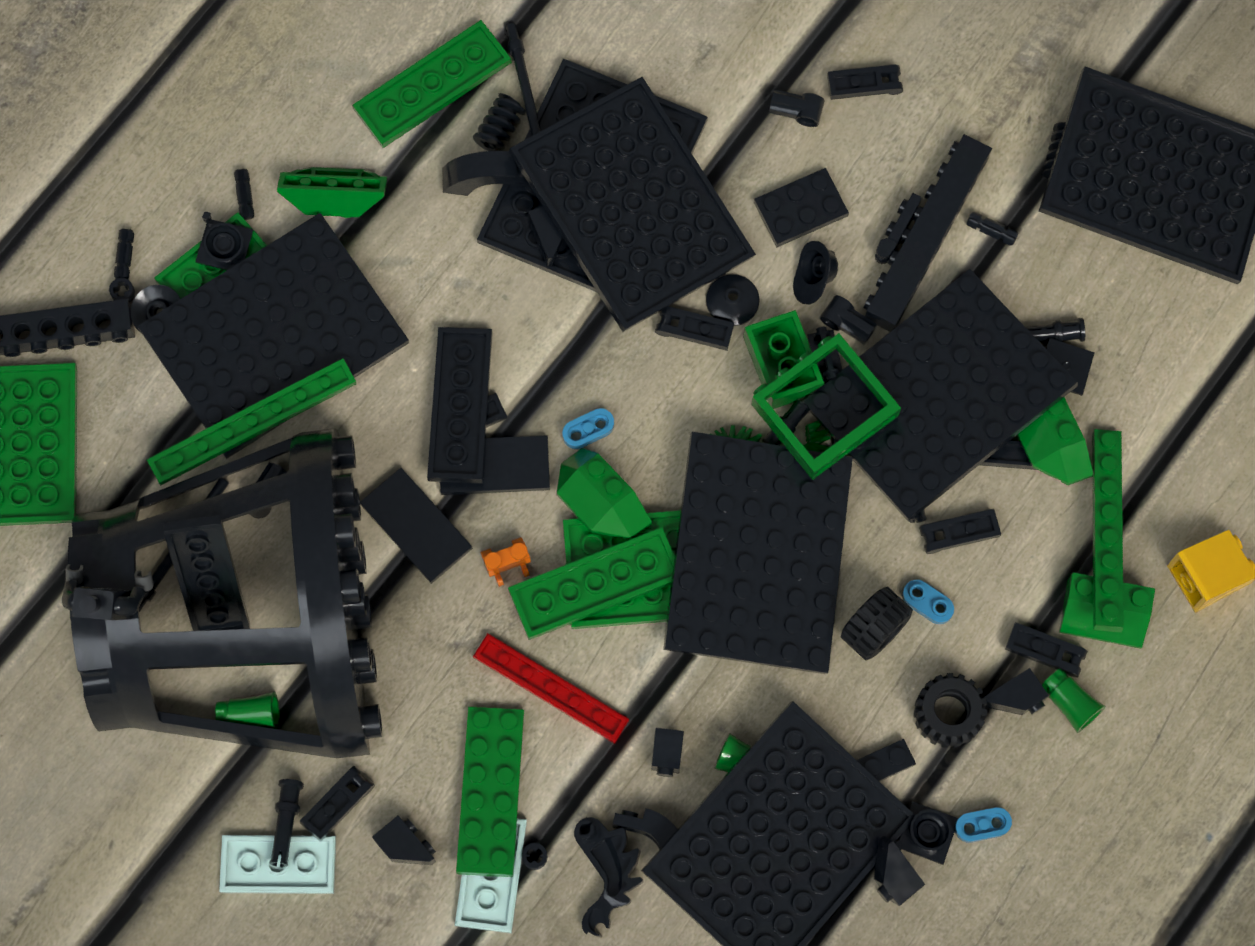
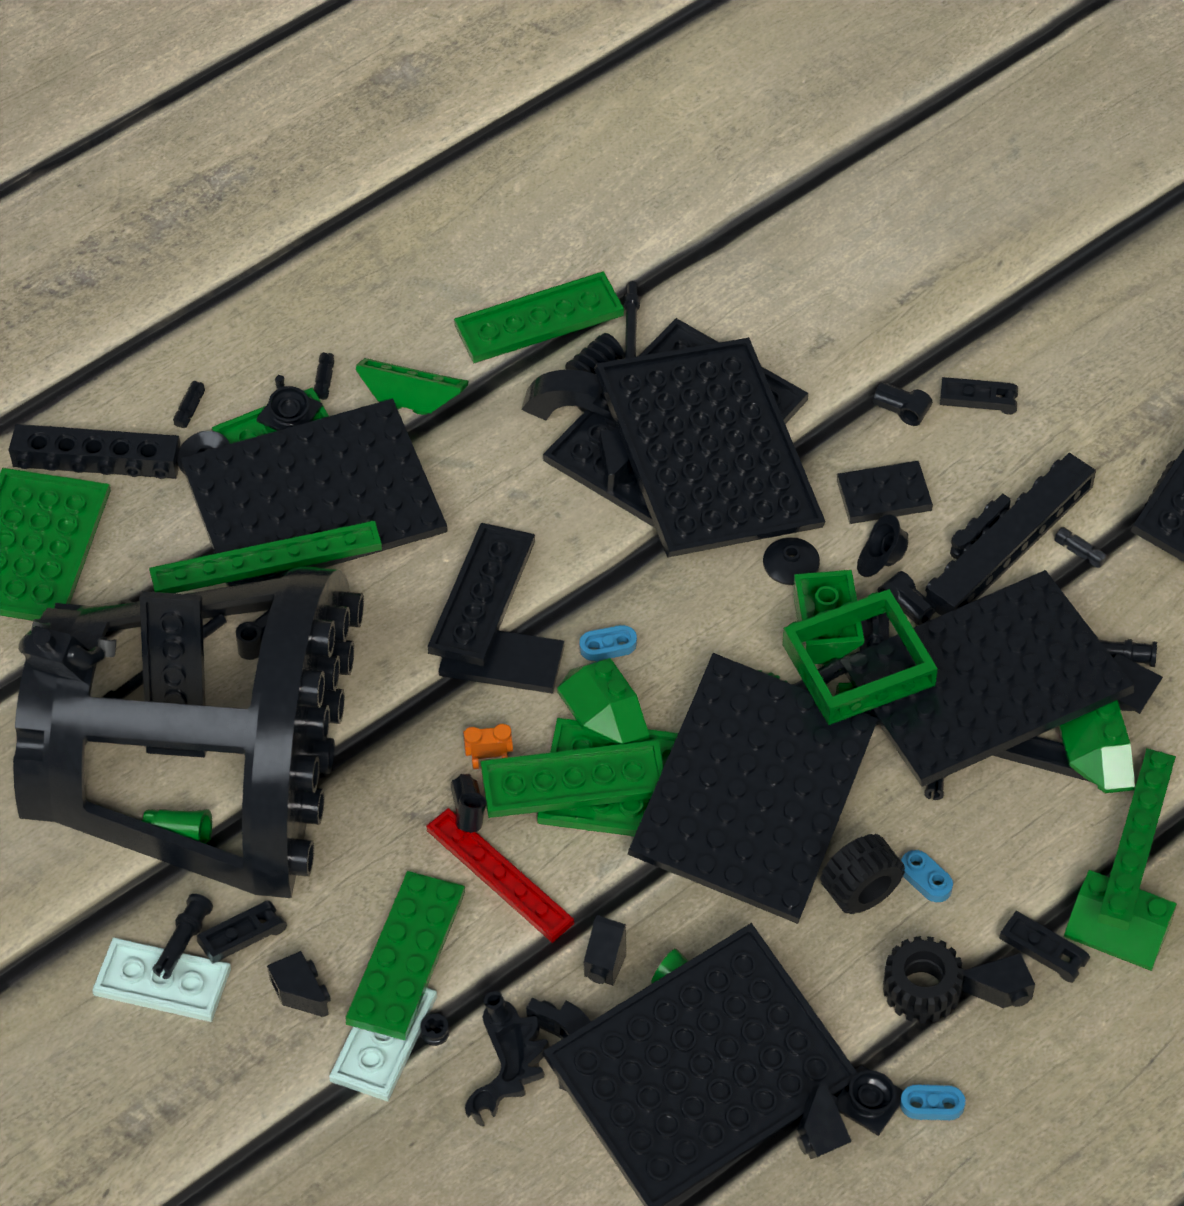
camera: 15 degrees right, 20 degrees down
(115, 286) = (177, 427): black bush -> none
(416, 525) = (404, 696): black tile -> none
(495, 410) = (516, 611): black tile -> none
(505, 627) = (468, 803): none -> black piece
(695, 328) = (744, 575): black plate -> none
(888, 760) = (846, 1018): black plate -> none
(961, 531) = (977, 815): black plate -> none
(1072, 700) = (1063, 1001): green plant -> none

